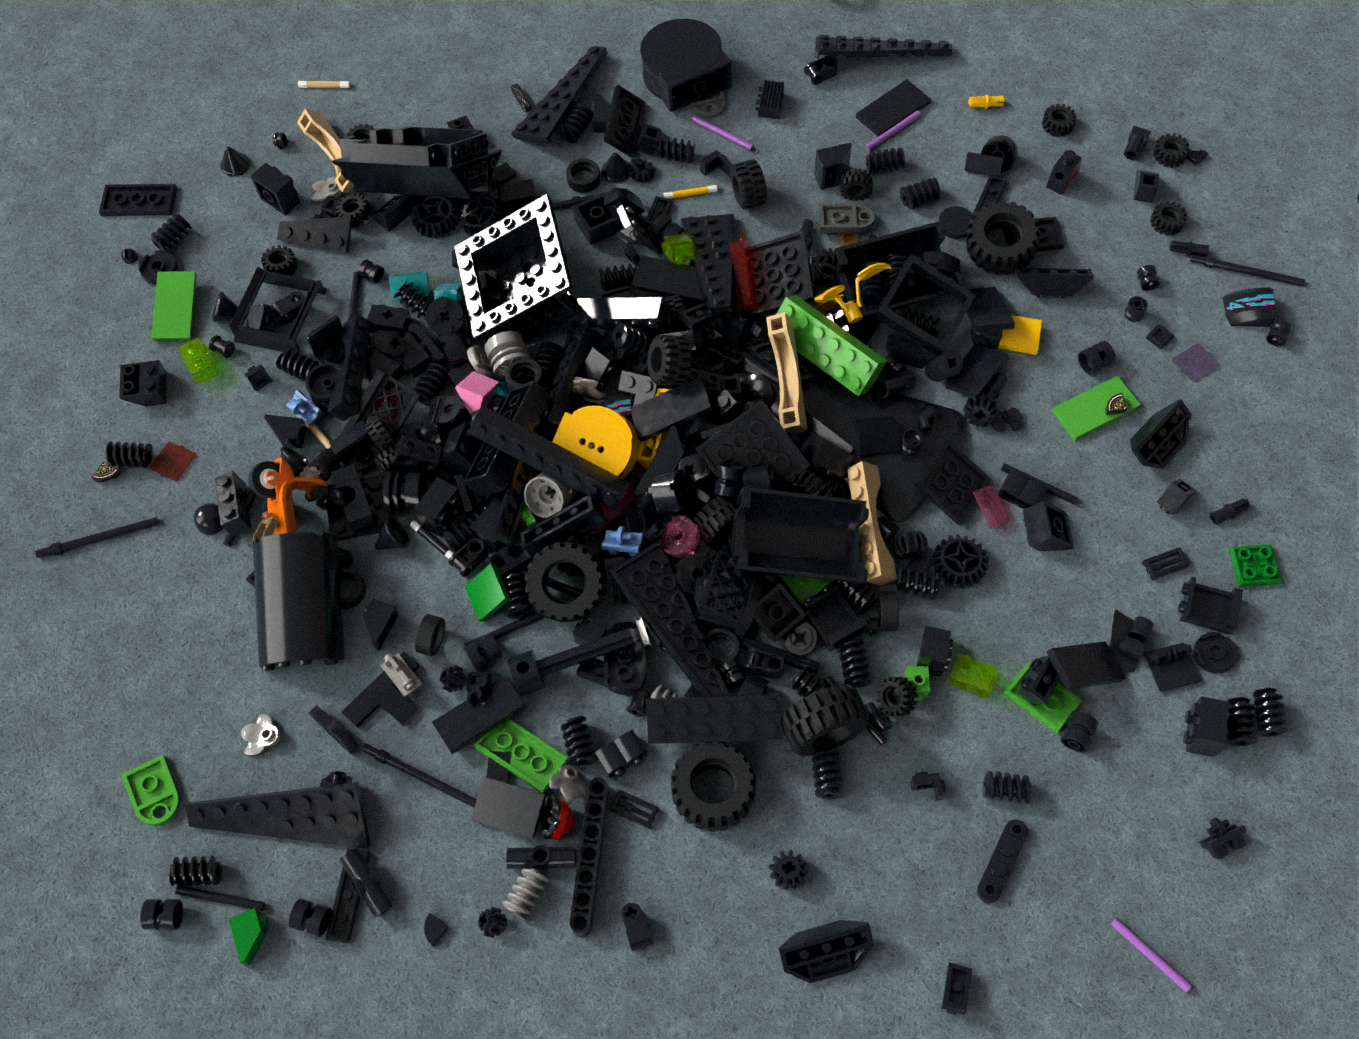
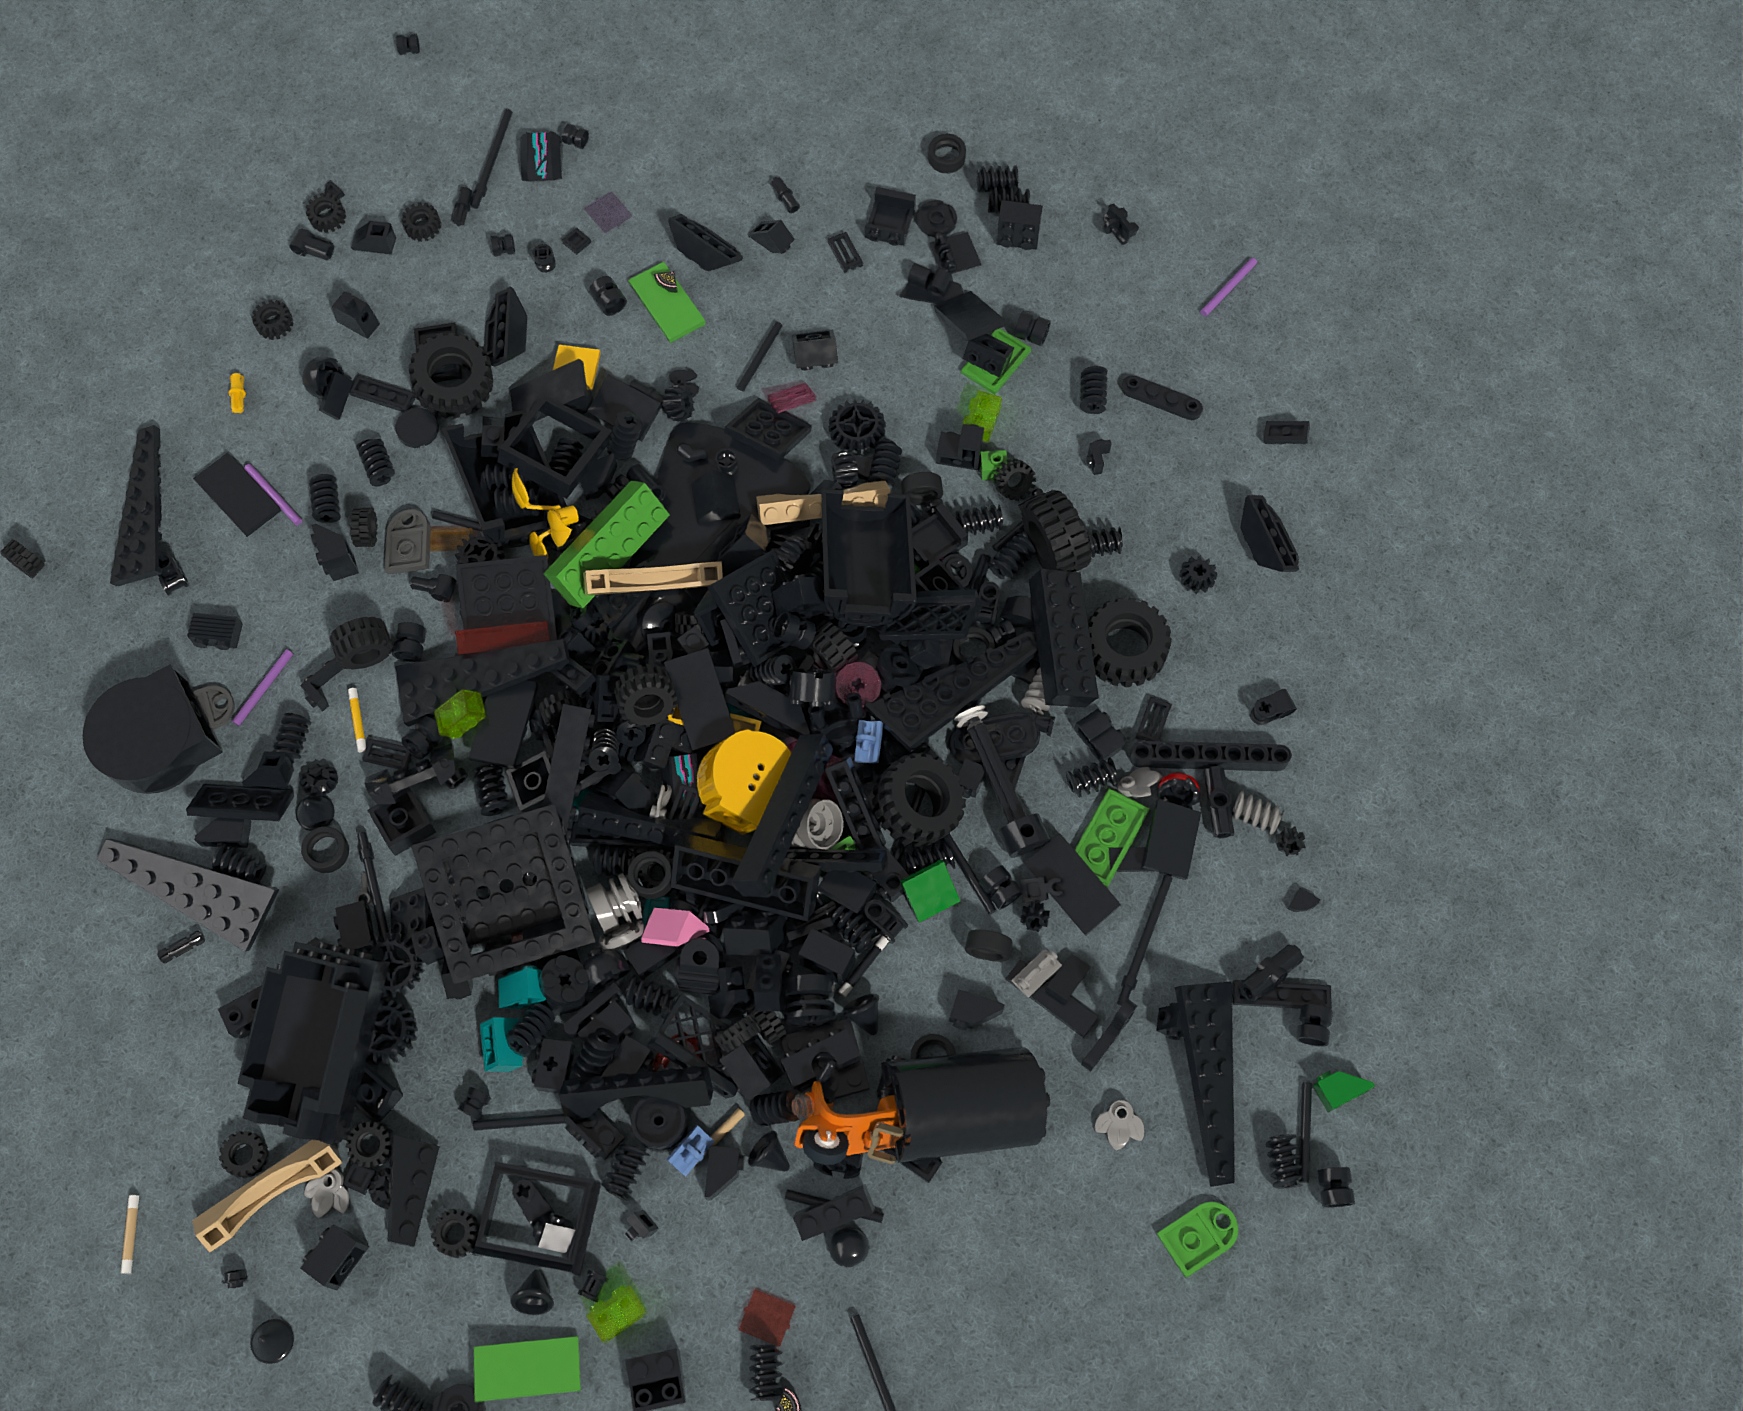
camera: 95 degrees left, 5 degrees up
(752, 220) = (409, 641): none -> black wheel
(1021, 491) = (772, 369): black brick -> none
(1255, 565) = (842, 180): green tile -> none
(1291, 678) = (942, 165): none -> black tyre

